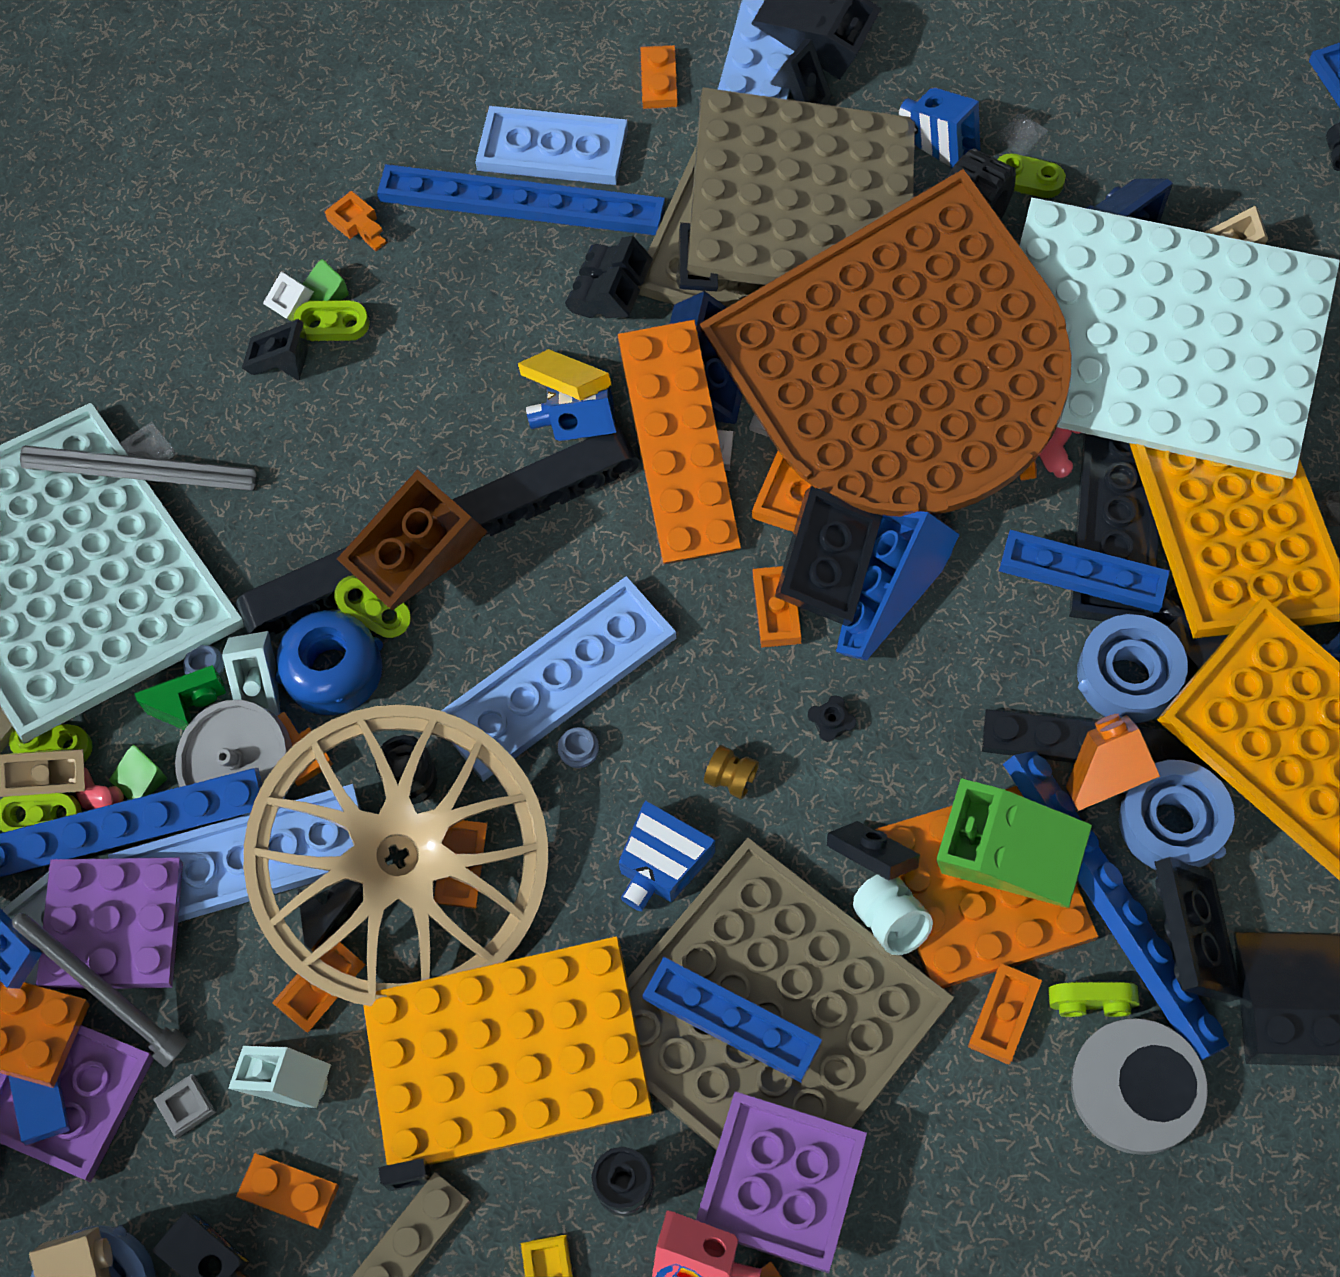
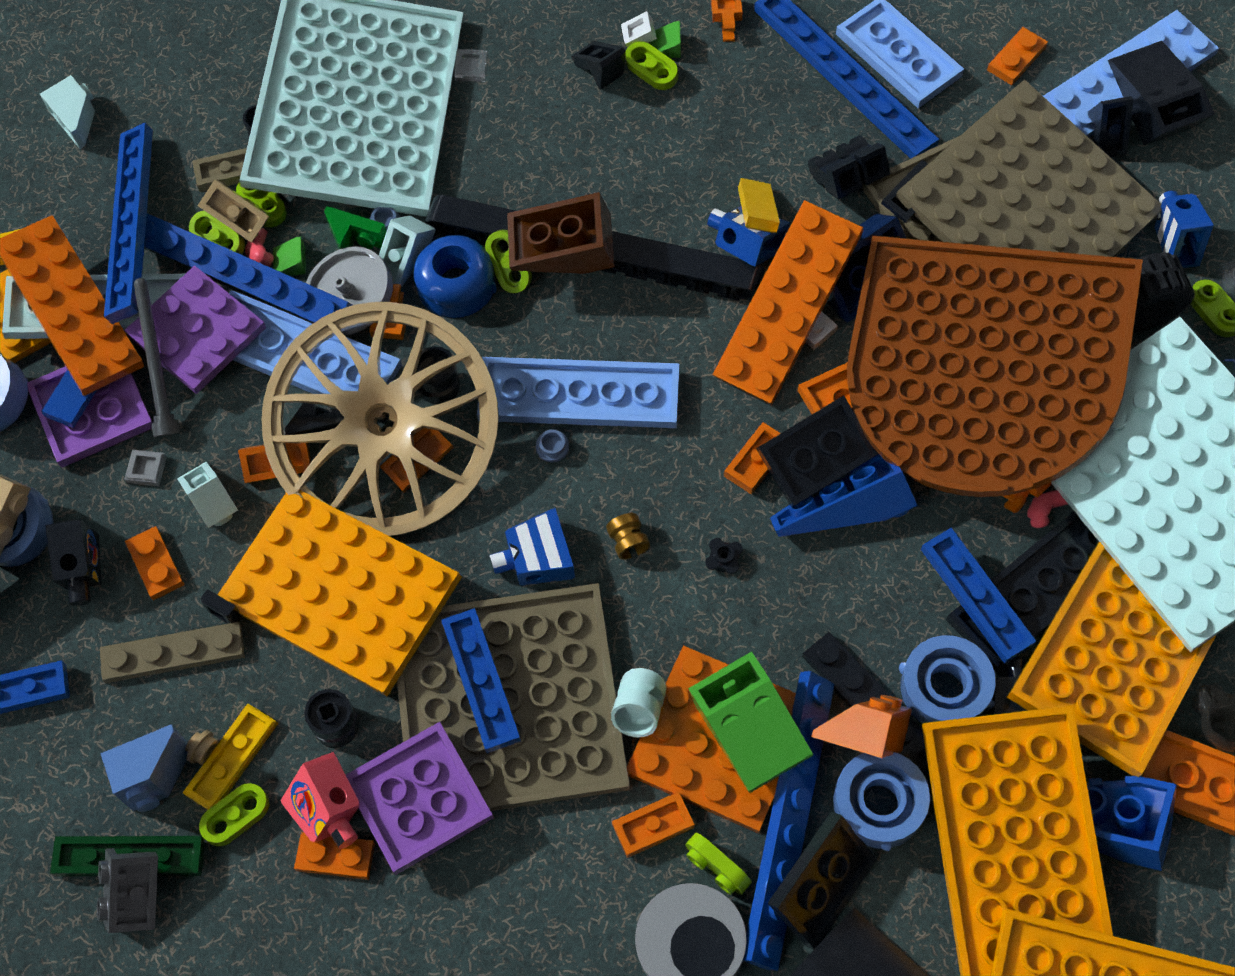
camera: 40 degrees right, 0 degrees up
(137, 468) = (452, 73): axle -> none
(873, 850) = (665, 655): black plate -> none

